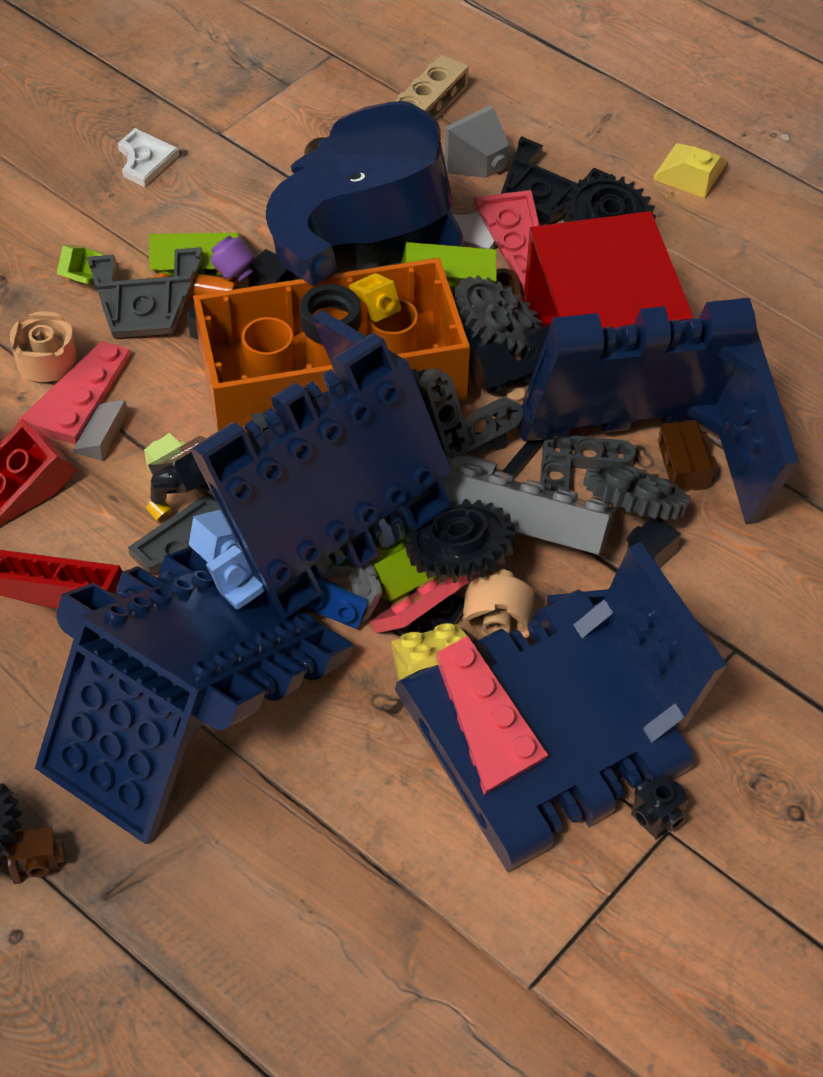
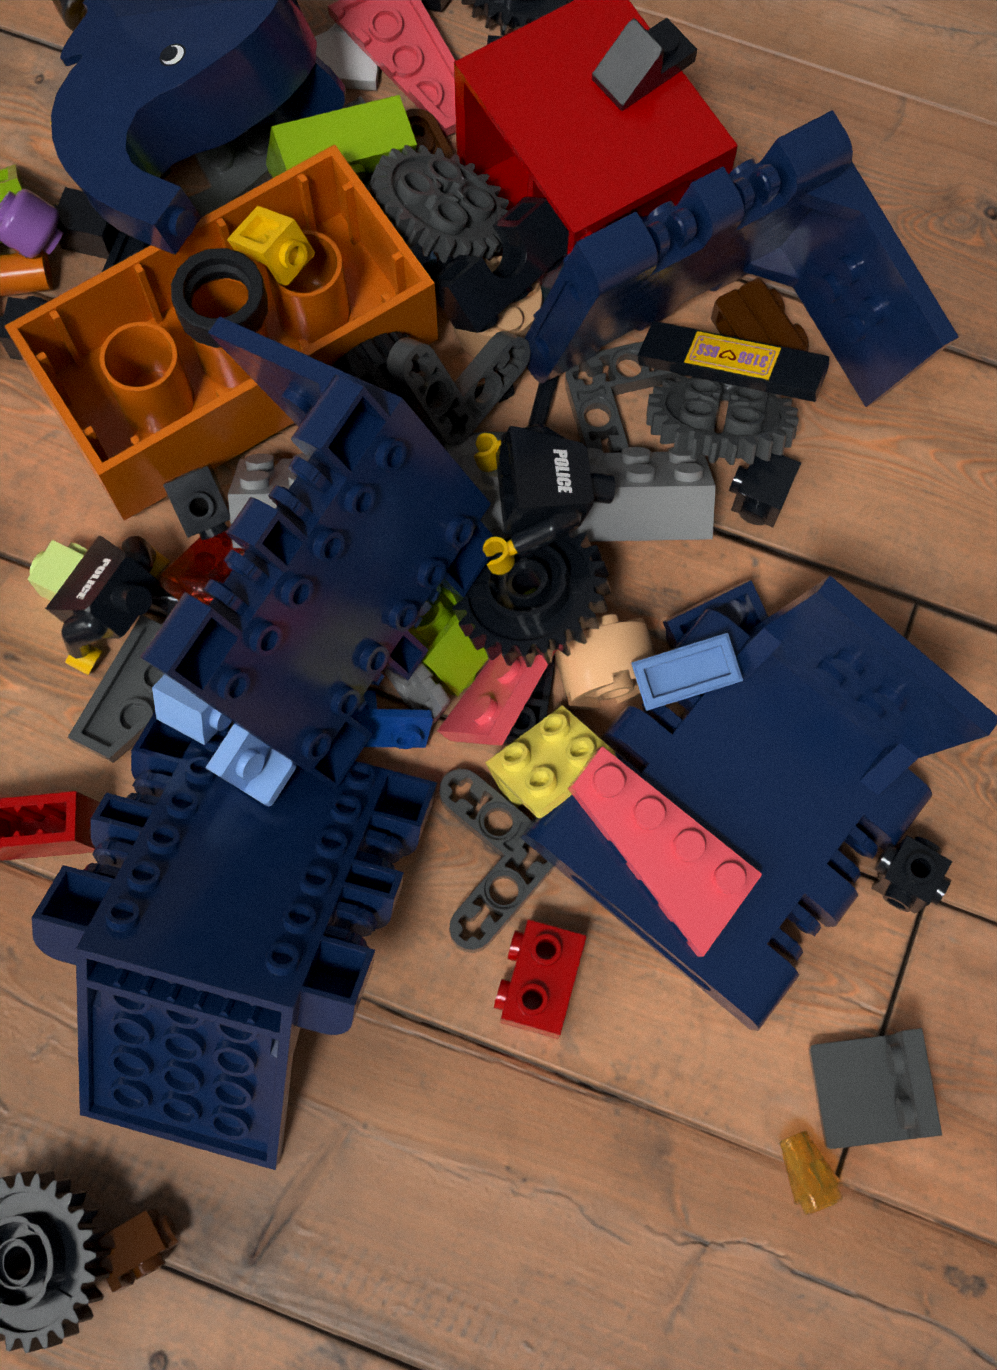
camera: 20 degrees left, 20 degrees up
(374, 786) = (541, 978): none -> red brick
(386, 705) = (508, 846): none -> dark grey beam
(488, 478) = (541, 489): none -> black torso
(510, 972) = (809, 1174): none -> clear yellow cone
(544, 616) = (687, 671): none -> medium blue tile
(577, 933) = (874, 1090): none -> dark grey bracket
(647, 255) = (642, 61): none -> black slope
(658, 460) = (734, 361): none -> black tile

